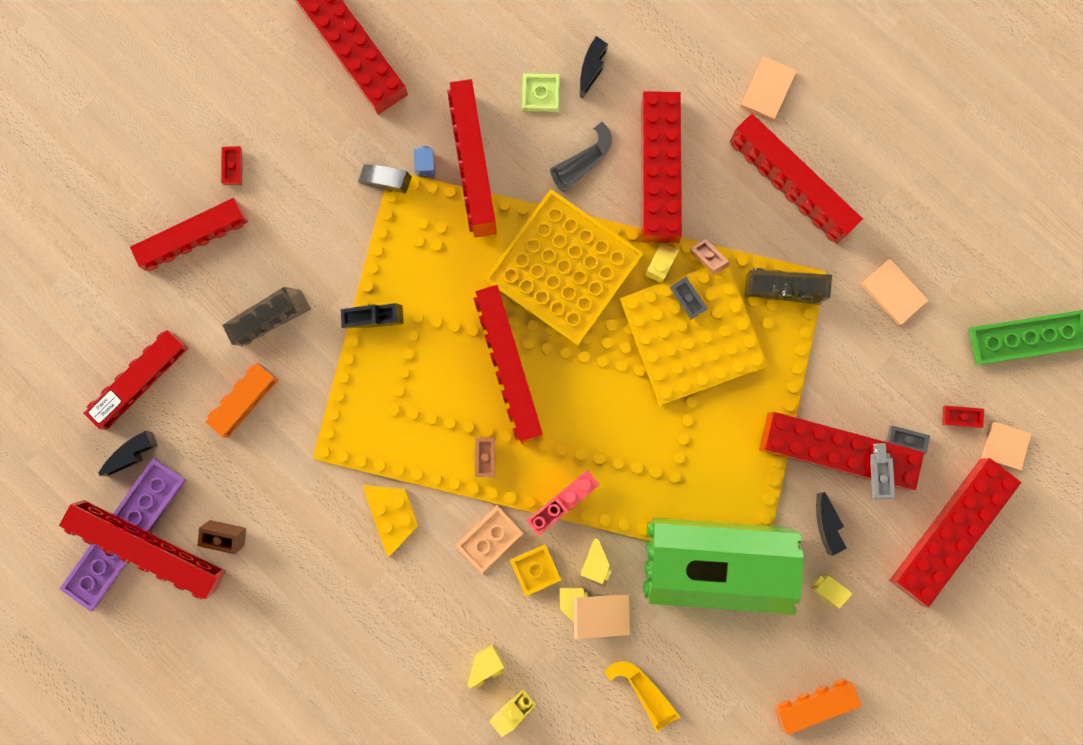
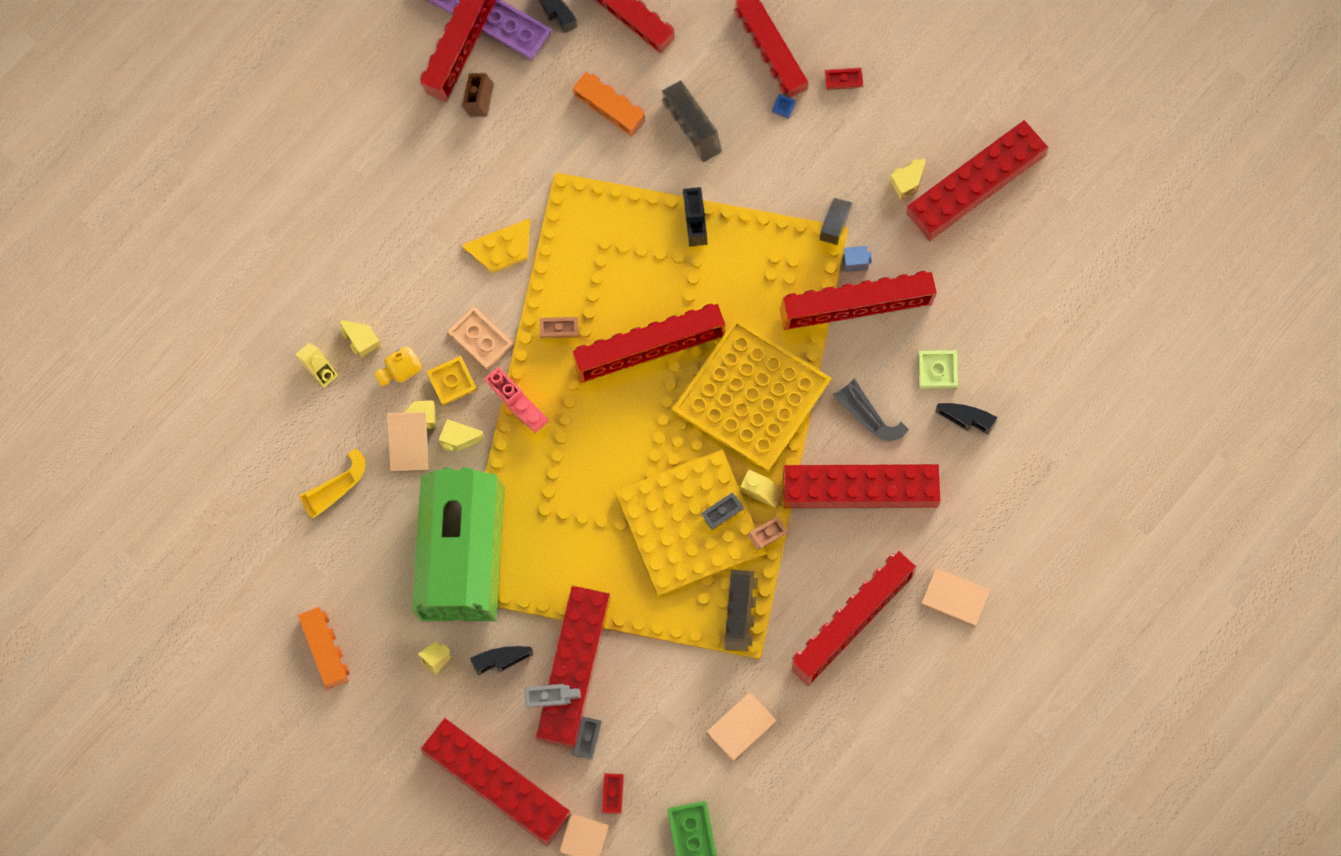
camera: 90 degrees right, 10 degrees down
(256, 226) = (783, 106): none -> blue tile
(344, 106) = (907, 180): none -> light yellow slope
(519, 624) = (399, 366): none -> yellow piece

